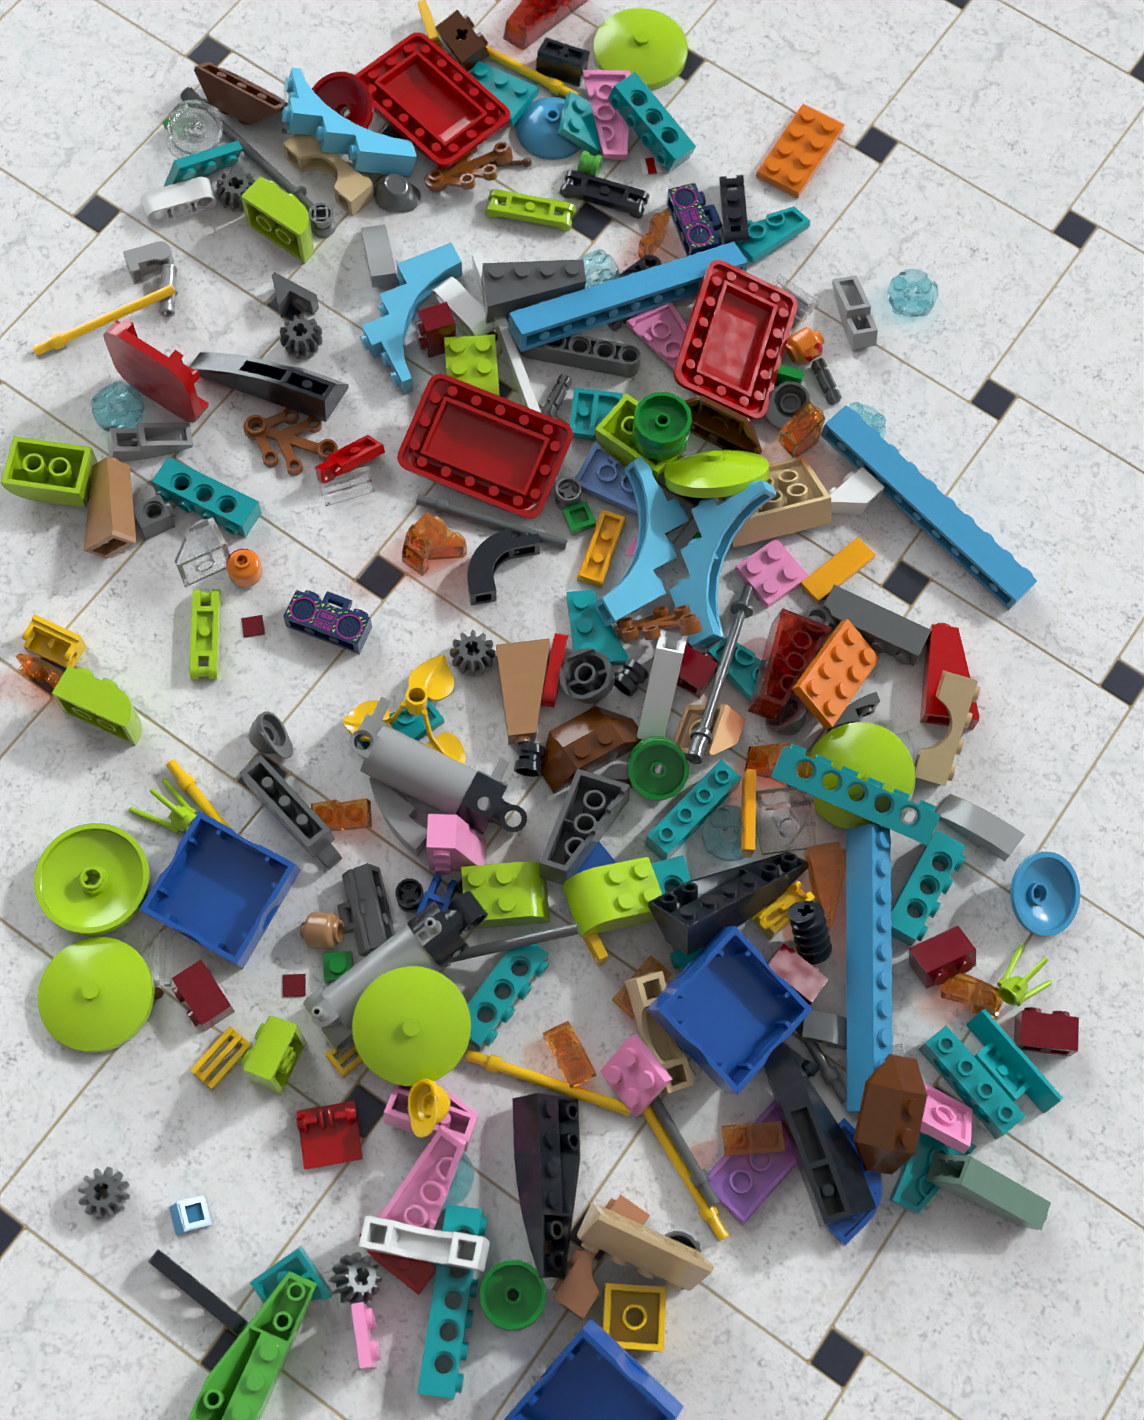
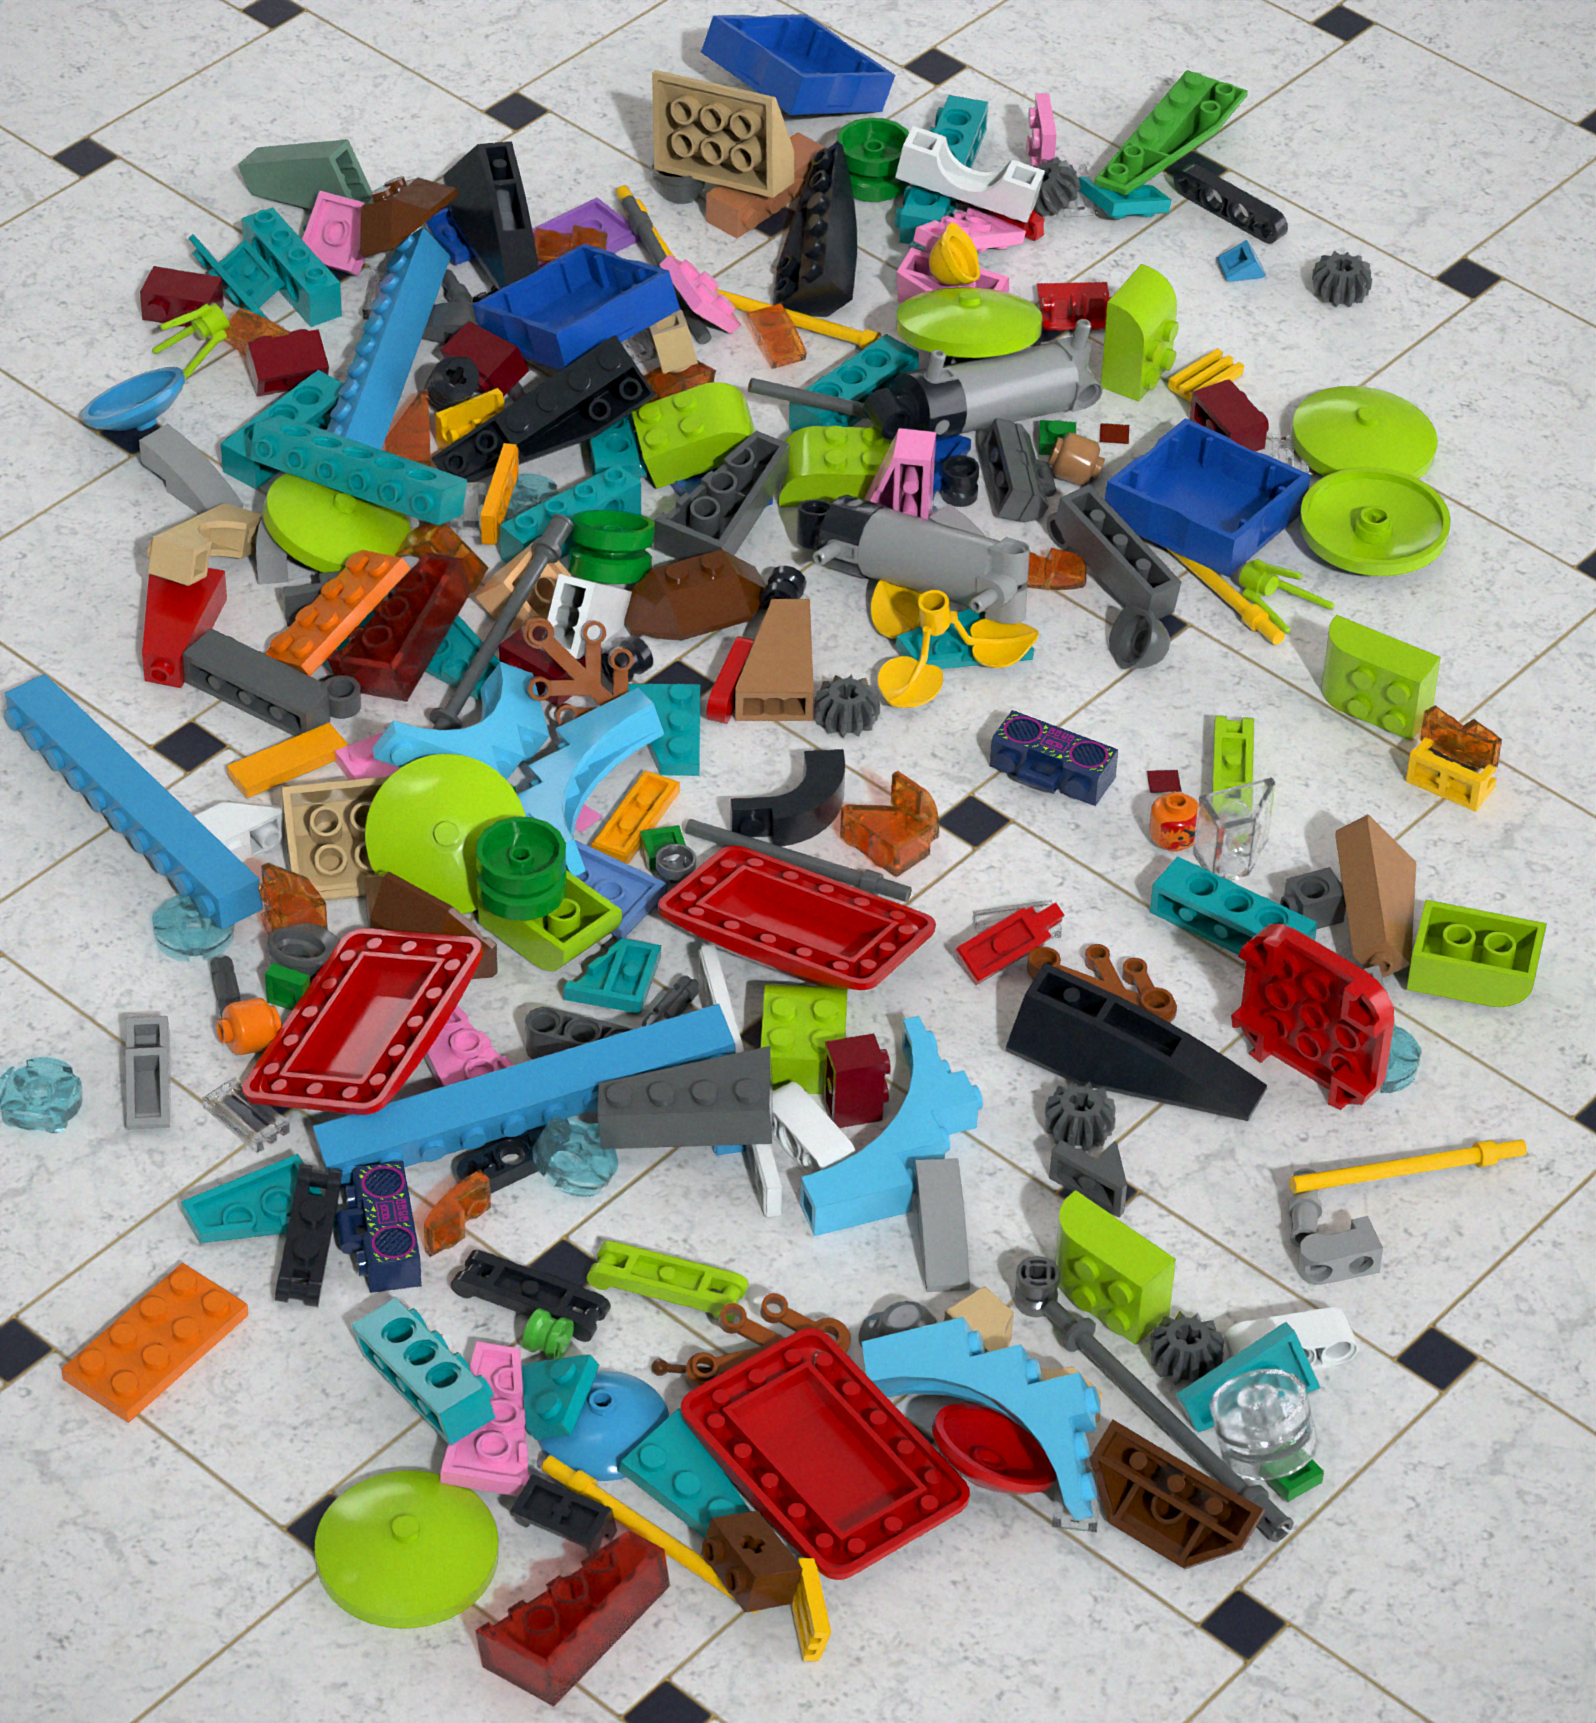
camera: 170 degrees left, 25 degrees down
(587, 676) = (687, 646): dark grey cylinder -> none

